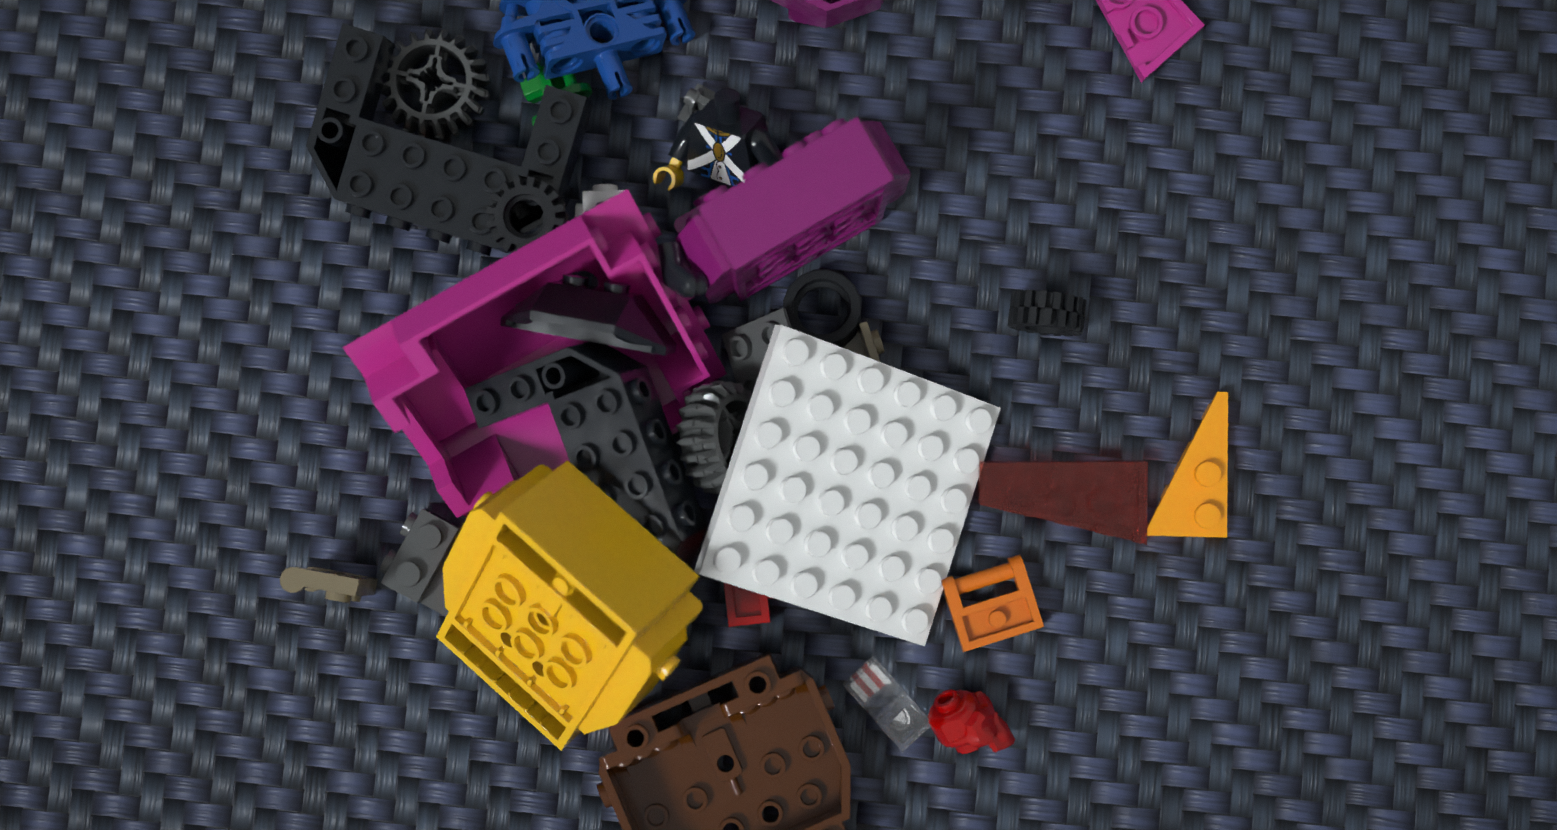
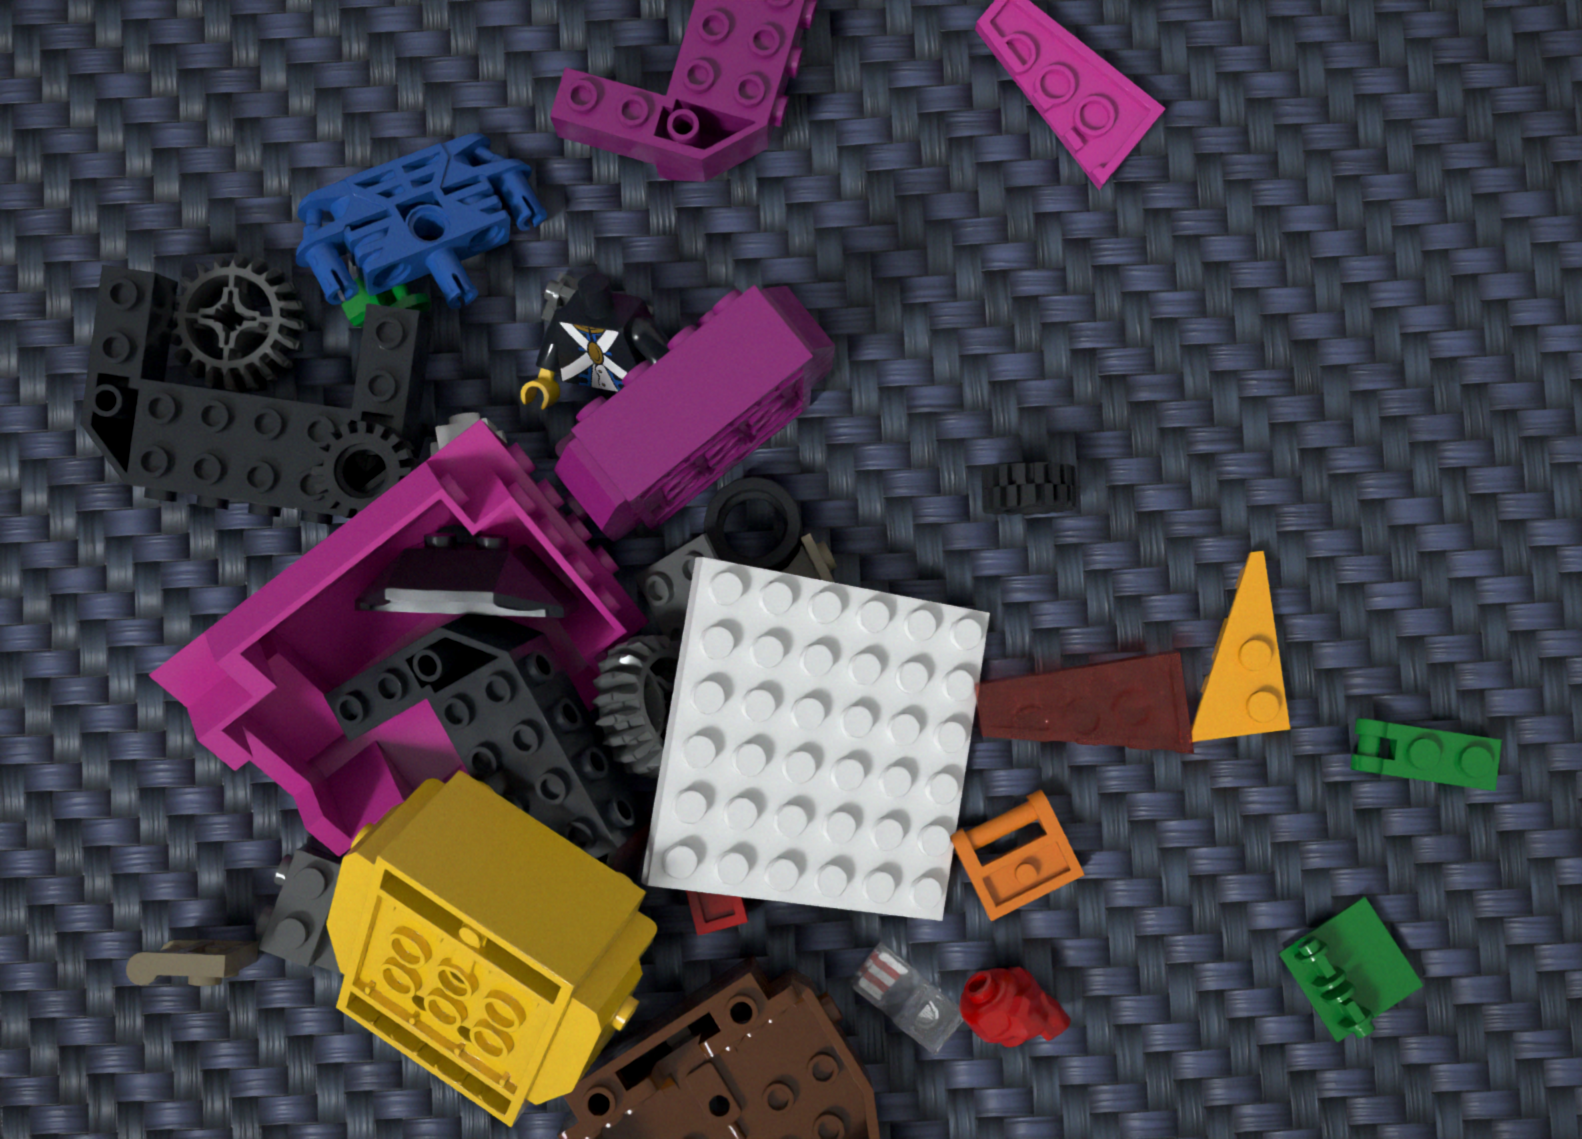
camera: 10 degrees left, 0 degrees up
(677, 276) = (563, 518): black arm -> none
(1245, 736) = (1350, 970): none -> green hinge
(1334, 575) = (1427, 754): none -> green plate

